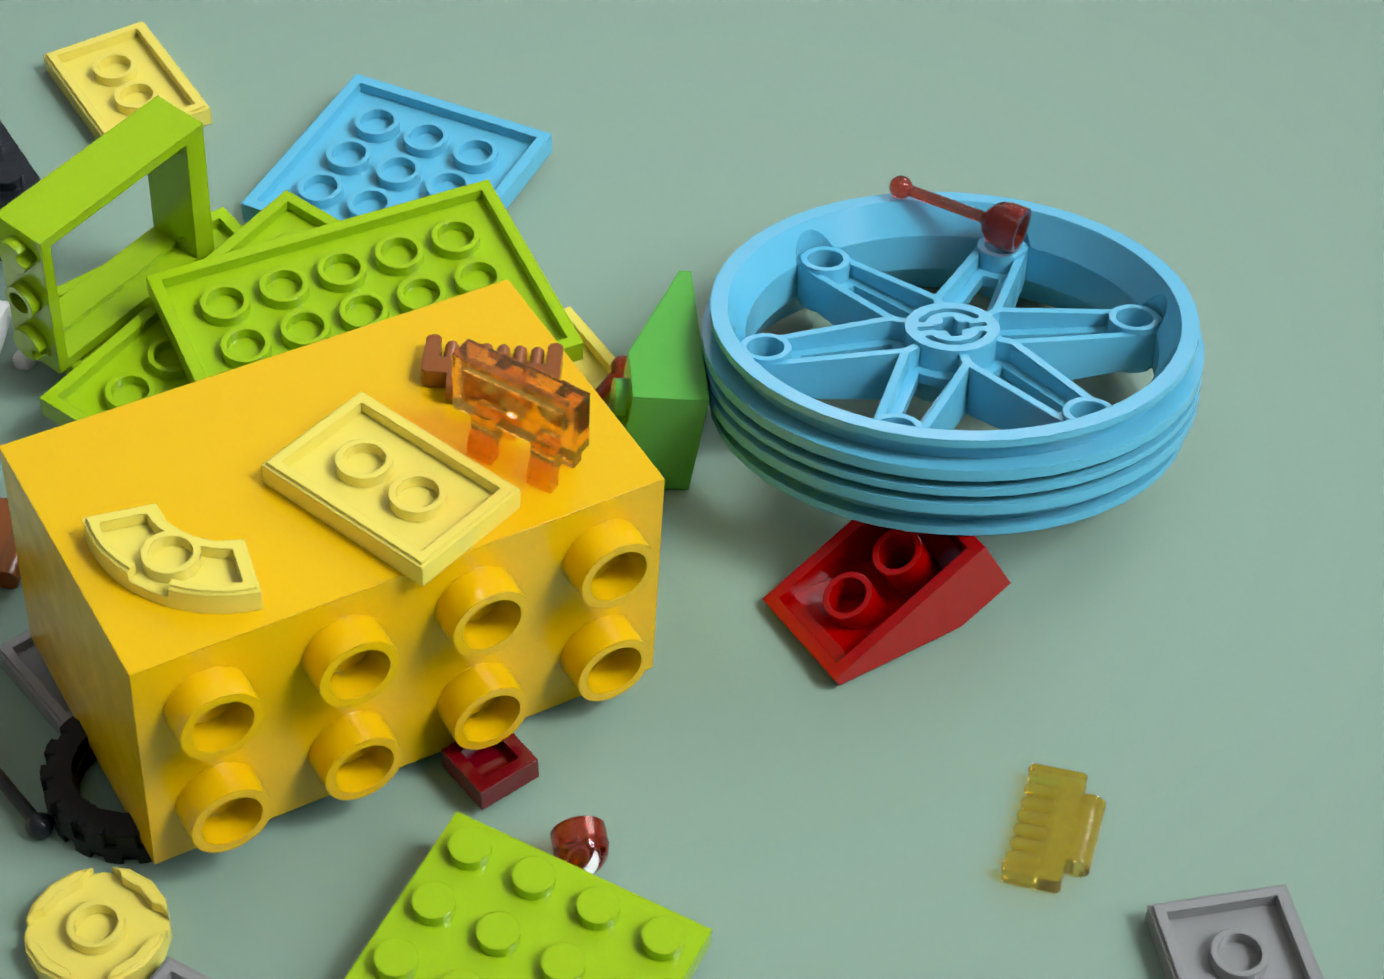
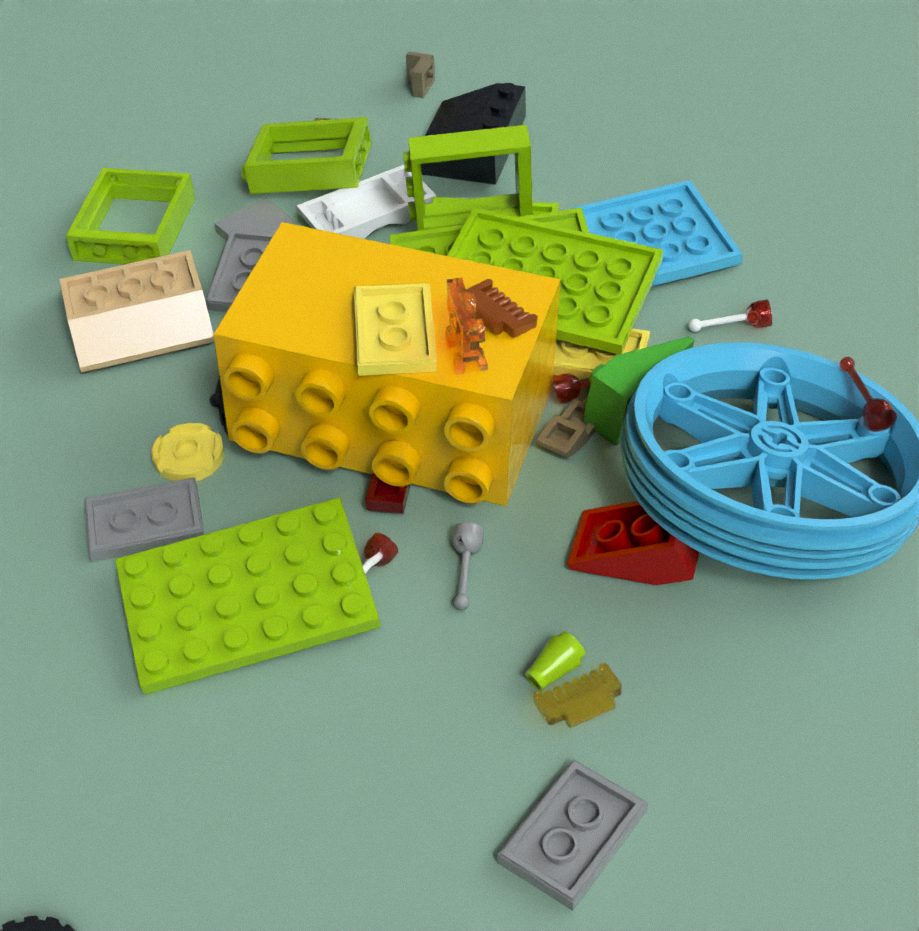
camera: 50 degrees right, 0 degrees up
(118, 75) = (594, 137): light yellow tile -> none
(171, 565) = (276, 304): light yellow tile -> none
(660, 201) = (757, 314): none -> hinge
(678, 746) = (466, 540): none -> light grey hinge
(980, 804) = (557, 659): none -> lime cone

